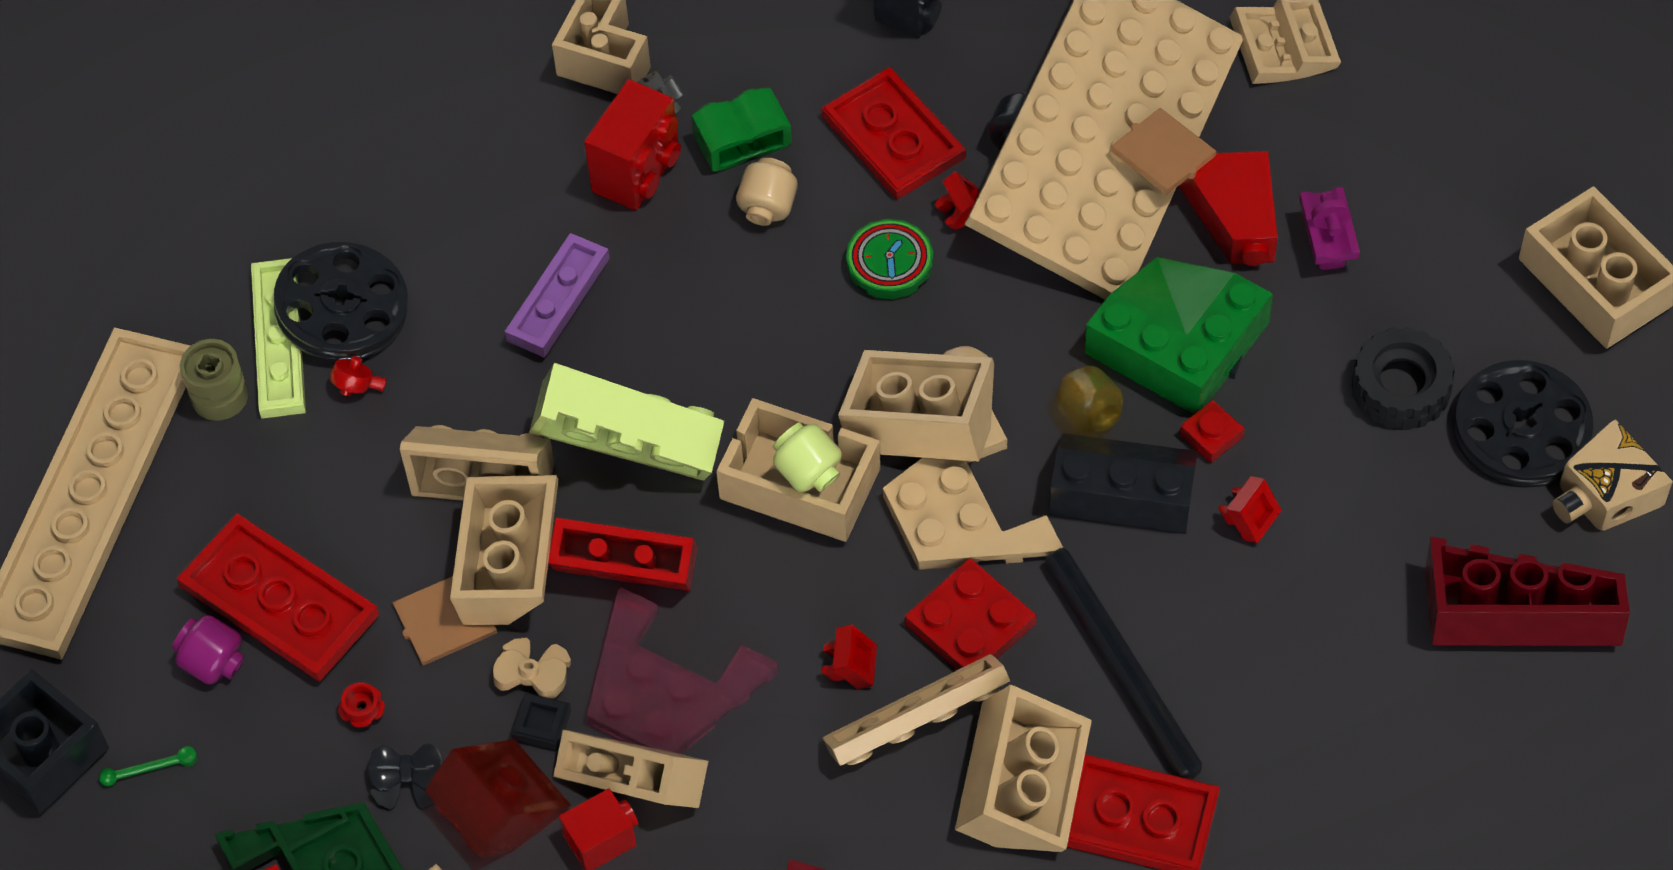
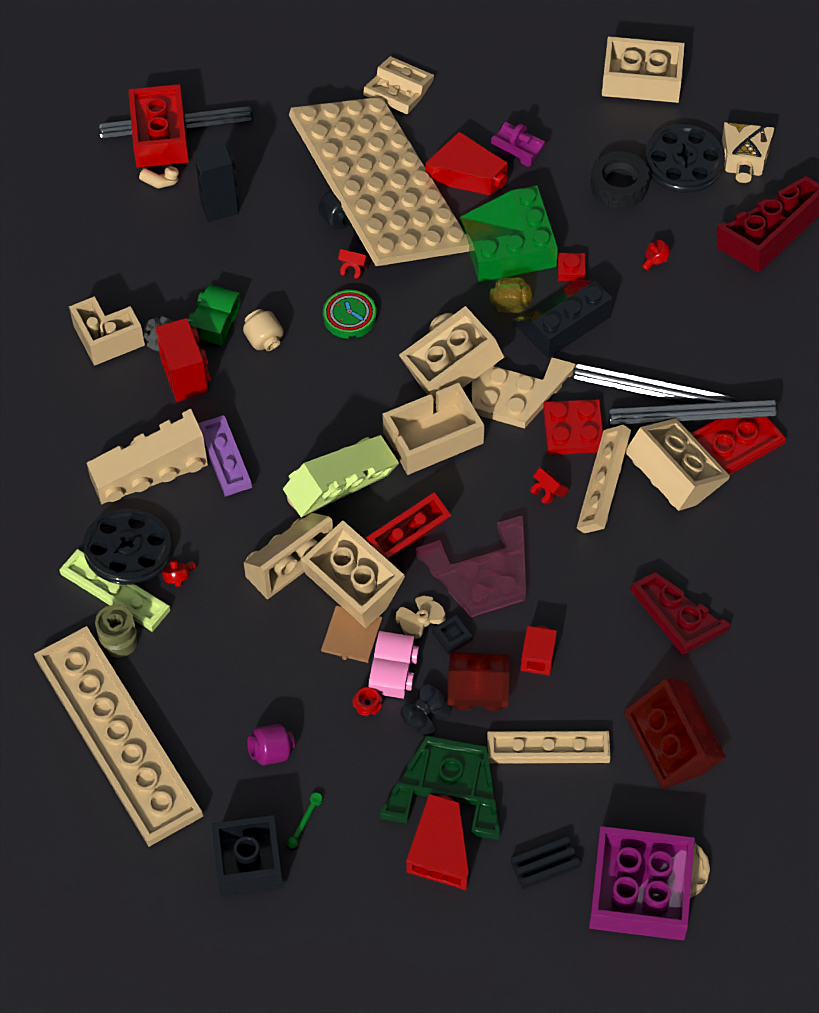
camera: 50 degrees left, 0 degrees up
(278, 597) = (269, 694): red plate -> none
(431, 689) = (392, 664): none -> bright pink brick
(471, 227) = (149, 459): none -> tan wedge
(631, 769) = (519, 614): tan slope -> none
(807, 457) = (445, 412): yellowish green head -> none
(893, 133) = (281, 261): red tile -> none
(1125, 735) = (693, 412): none -> black axle
(1163, 151) = (418, 166): medium nougat piece -> none
(1251, 509) = (629, 282): red tile -> none
(1330, 507) = (656, 254): none -> red piece

